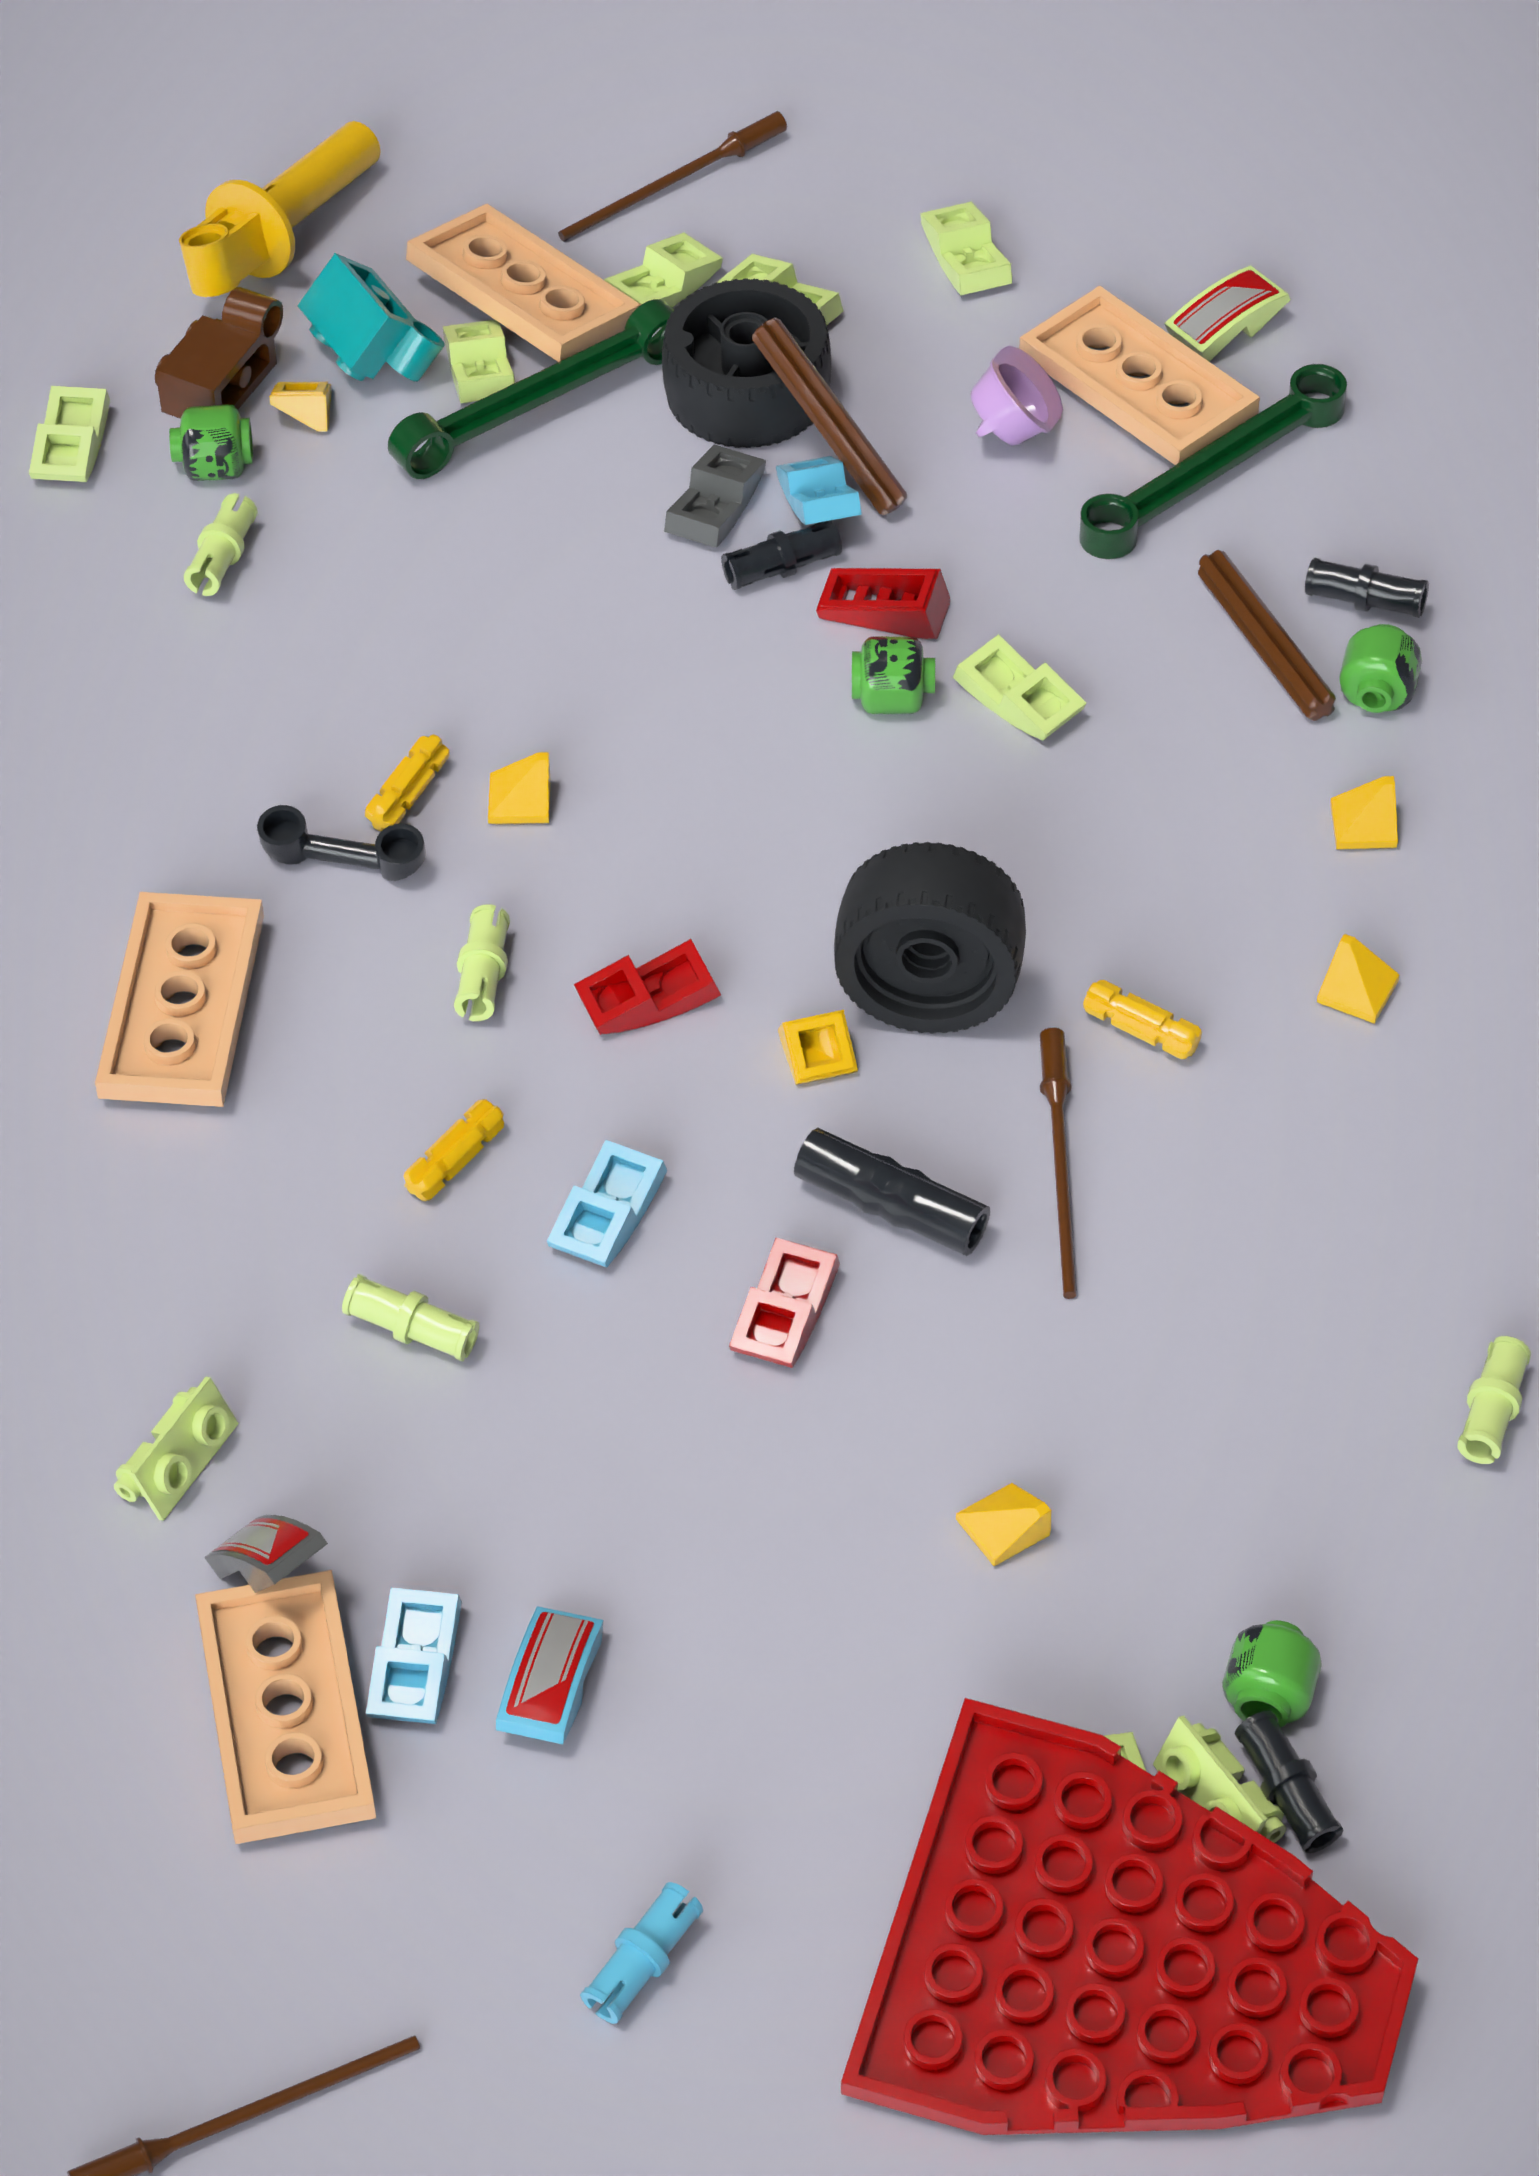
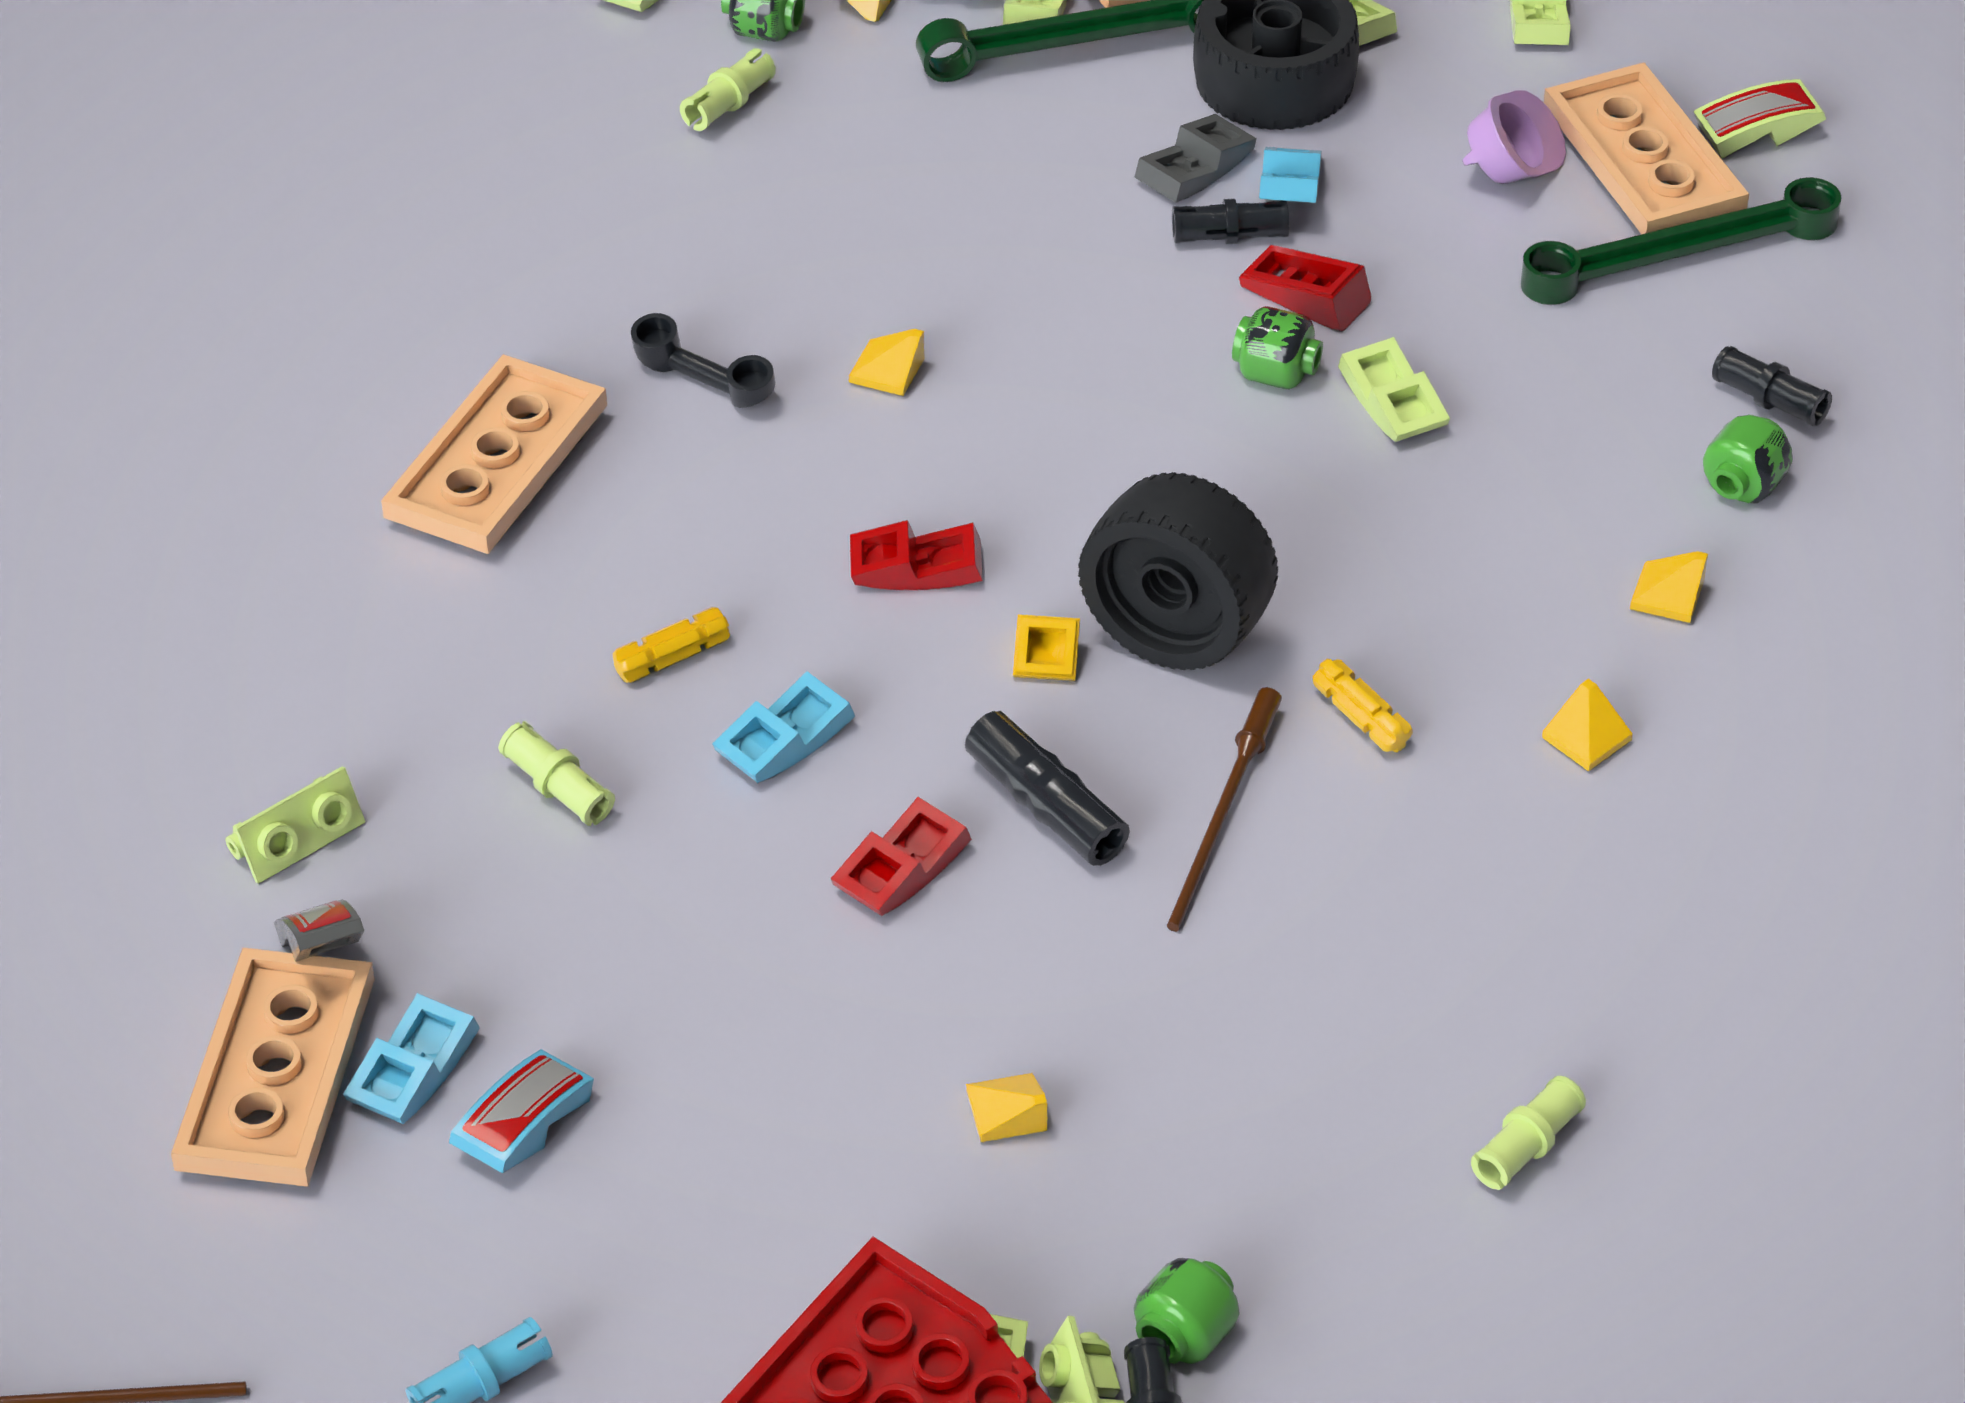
camera: 20 degrees right, 5 degrees down
(407, 782) = (791, 326): yellow axle -> none
(482, 962) = (776, 494): yellowish green pin -> none
(829, 416) = (1322, 109): reddish brown axle -> none
(1266, 635) = (1654, 404): reddish brown axle -> none

